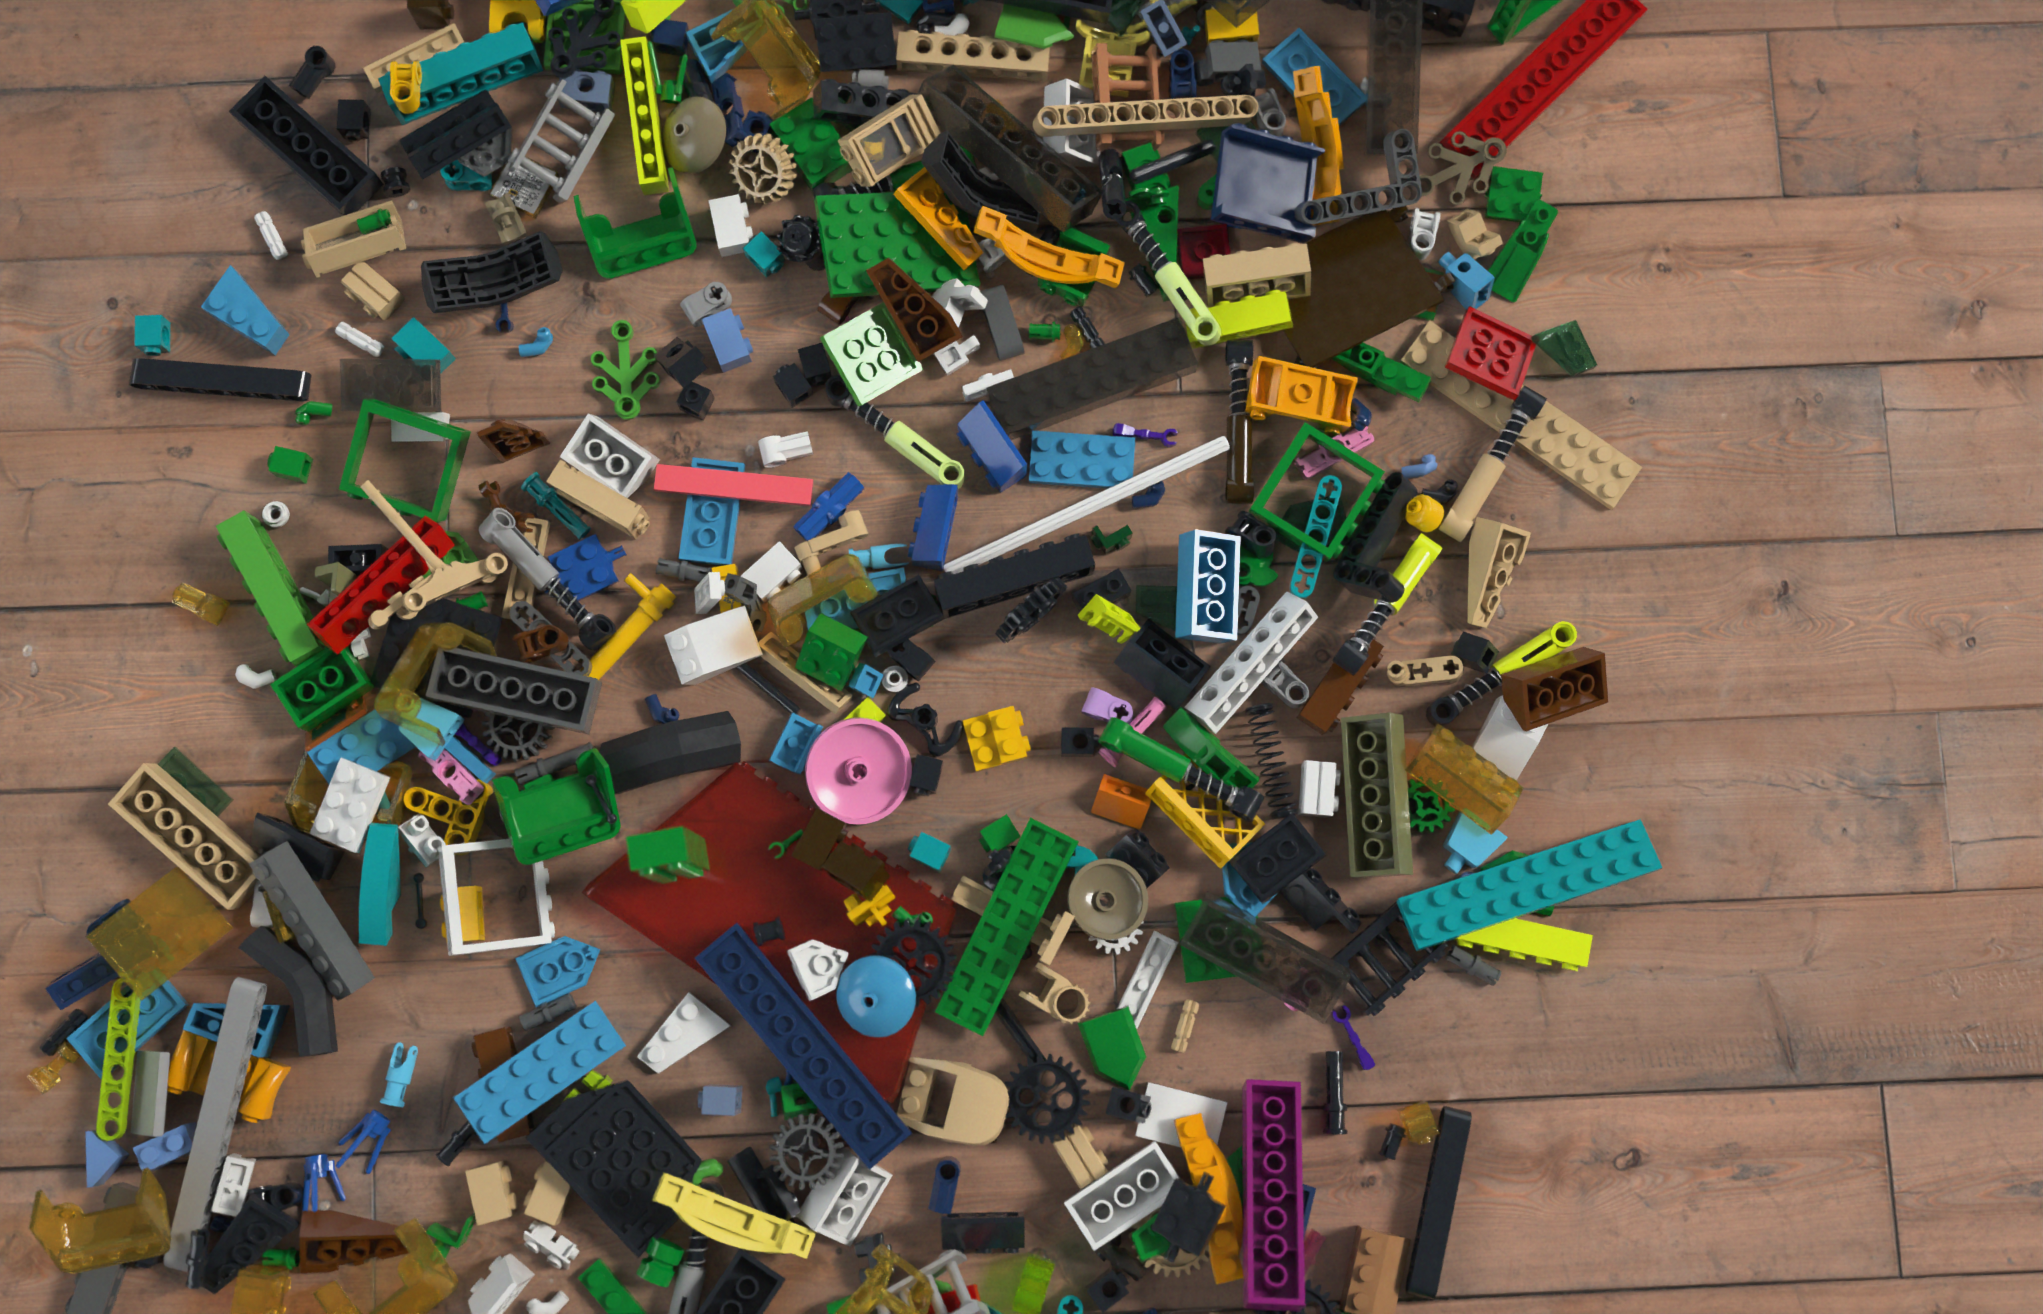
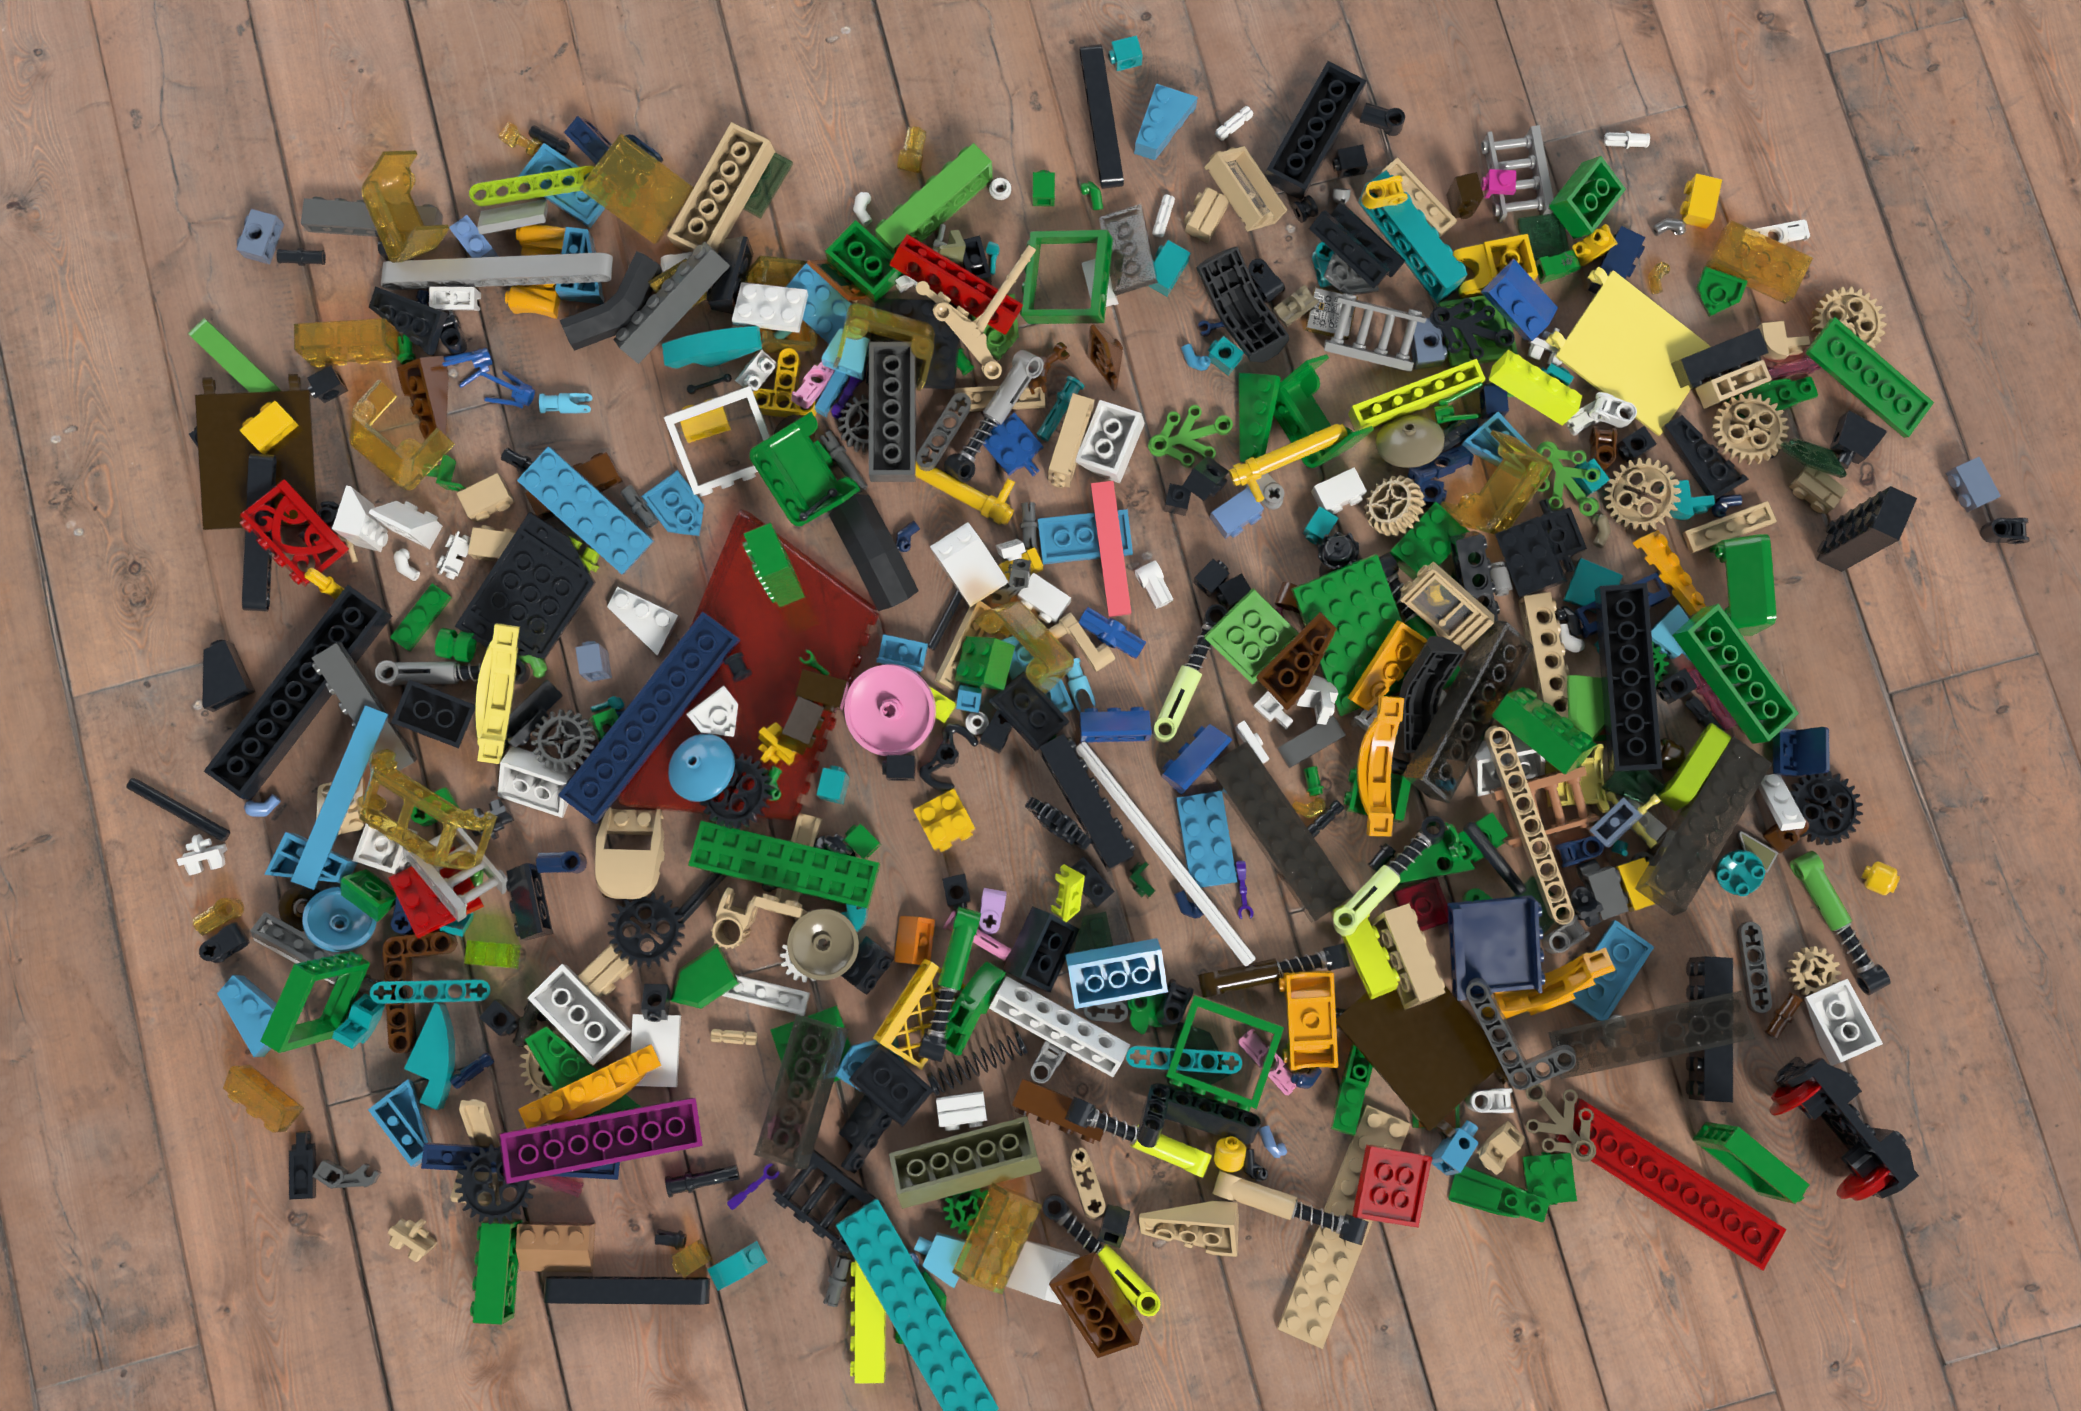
camera: 80 degrees right, 0 degrees up
(102, 1158) = (456, 194): medium blue slope -> none
(197, 1258) = (390, 286): black pin -> none
(348, 538) = (994, 250): none -> teal hand
(374, 221) = (1265, 201): green pin -> none
(389, 139) = (1341, 195): none -> light grey hinge
(467, 243) = (1266, 282): none -> black piece
(535, 643) = (935, 419): reddish brown piece -> none
(542, 299) = (1228, 364): none -> teal brick
(615, 290) = (1256, 412): none -> green wing
(682, 304) = (1256, 467): none -> yellow cylinder
(1049, 73) = (1544, 730): none -> green brick
(1112, 184) = (1458, 808): black piece -> none
(1188, 1217) = (566, 1070): black plate -> none
(1438, 1072) = (737, 1266): none -> teal brick
(1567, 347) = (1416, 1256): clear green wing -> none

